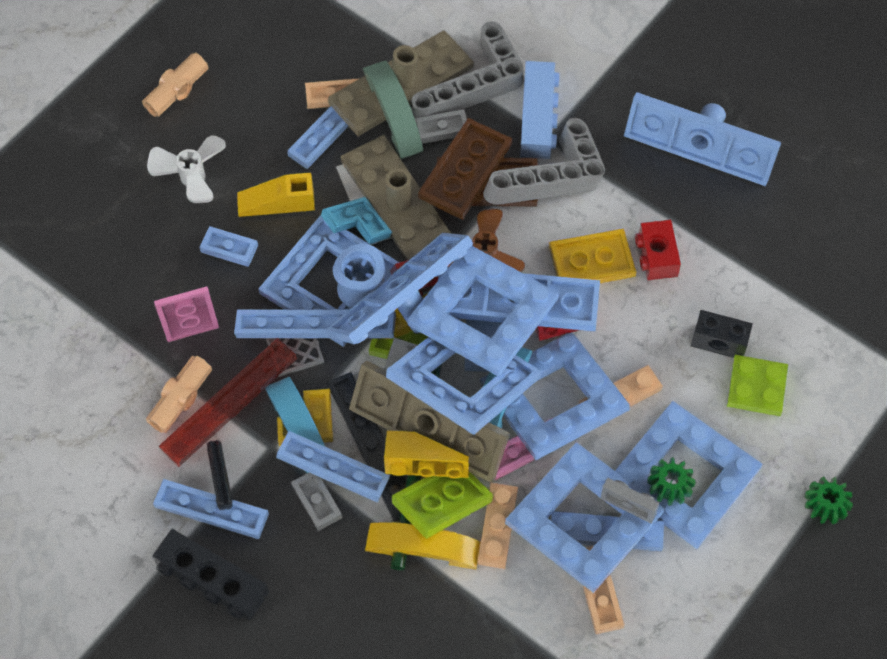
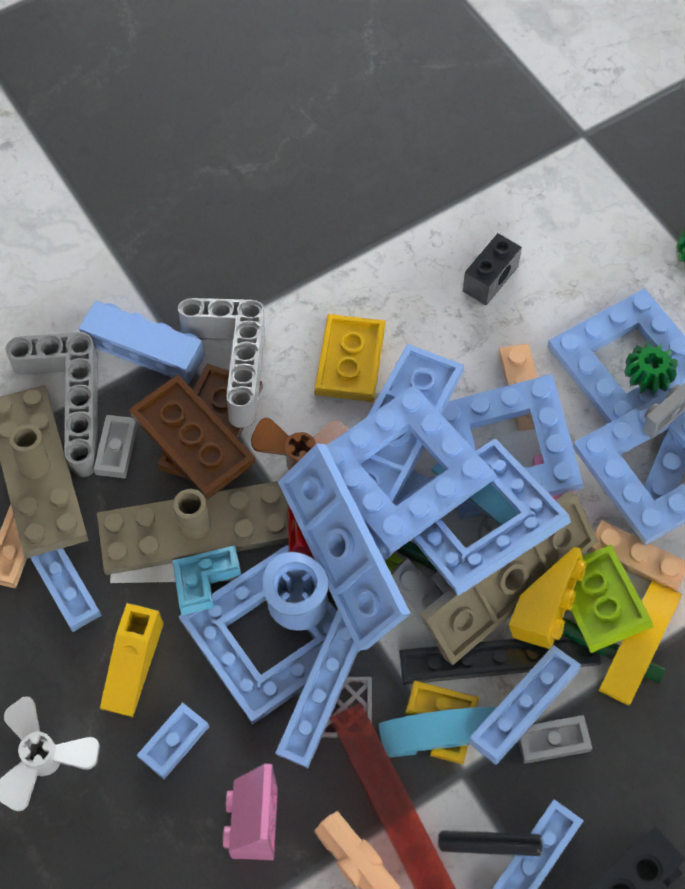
camera: 70 degrees left, 0 degrees up
(395, 108) = (72, 480): sand green slope -> none
(662, 237) = (361, 278): red brick -> none
(702, 138) = (256, 201): light blue plate -> none
(757, 385) = (553, 262): lime plate -> none

